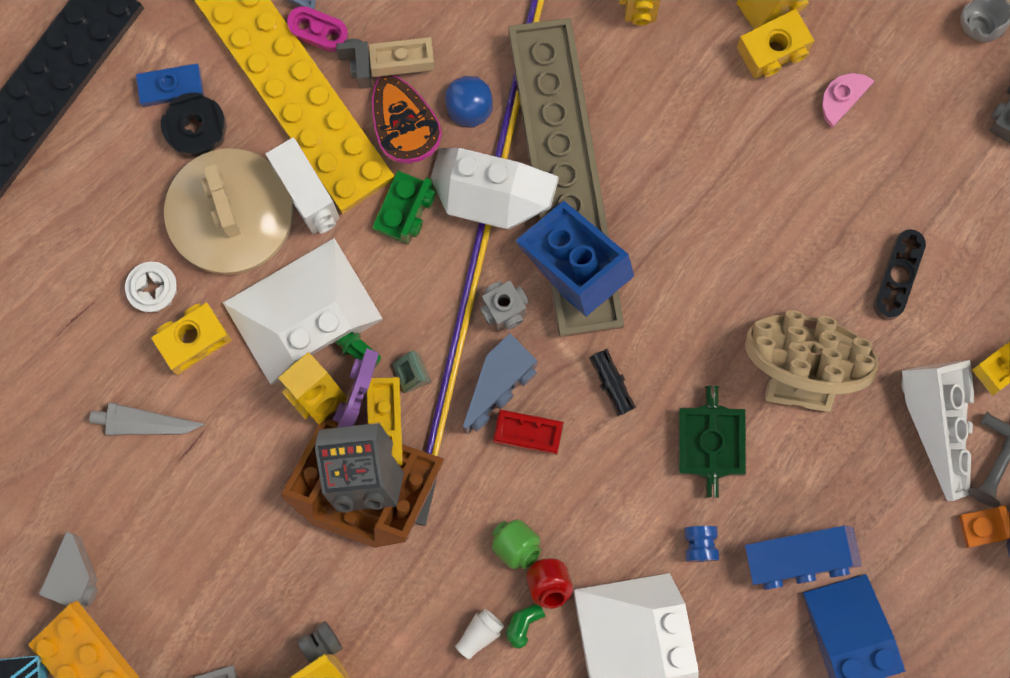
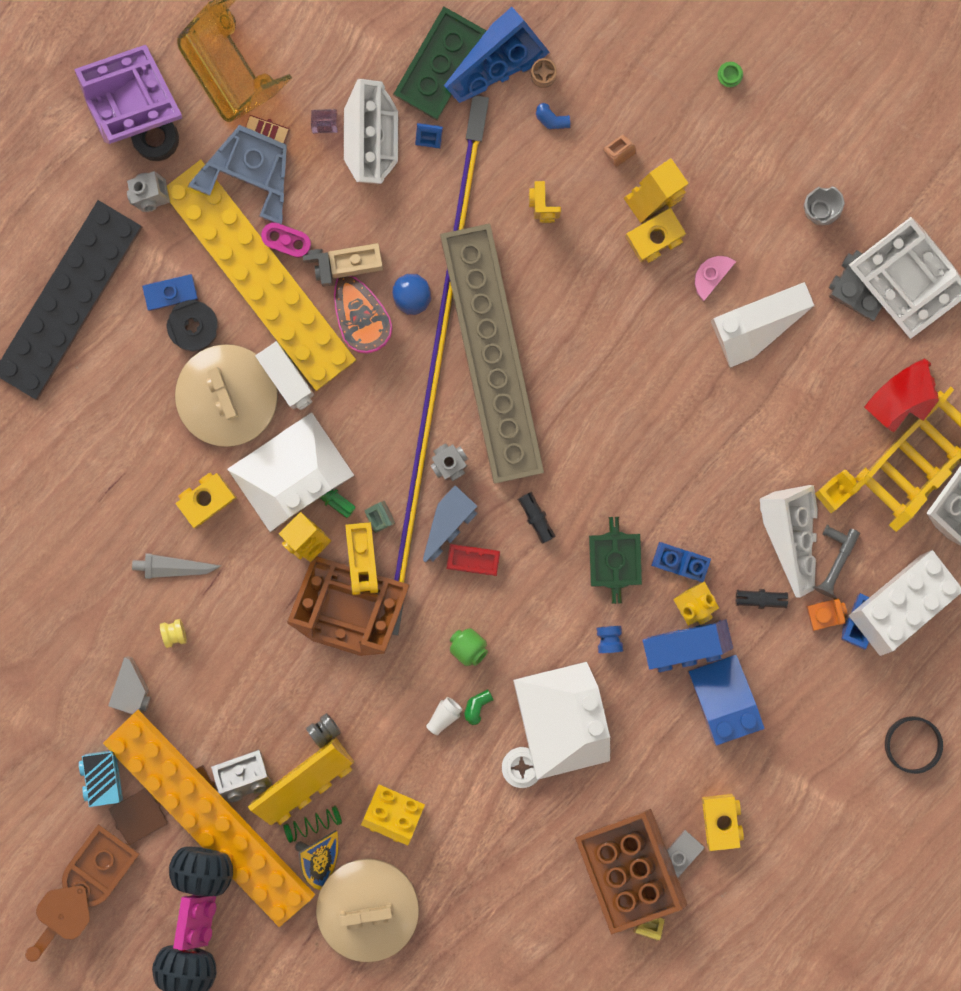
camera: 10 degrees left, 10 degrees up
(134, 505) = (173, 633): none -> light yellow wheel
(138, 281) = (158, 456): white gear -> none
(358, 467) = (345, 599): dark grey piece -> none
(361, 373) = (333, 553): medium lavender plate -> none
(404, 206) = (365, 384): green bracket -> none
(491, 188) = (433, 369): white wedge -> none
(549, 583) = (495, 675): red head -> none
(576, 258) = (503, 423): blue slope -> none
(797, 449) = (681, 562): none -> blue slope
(810, 363) = (688, 494): tan bracket -> none
(817, 503) = (696, 604): none -> yellow brick
(898, 157) = (756, 325): none -> white wedge
(898, 250) = (768, 415): black beam -> none
(901, 502) = (761, 599): none -> black pin

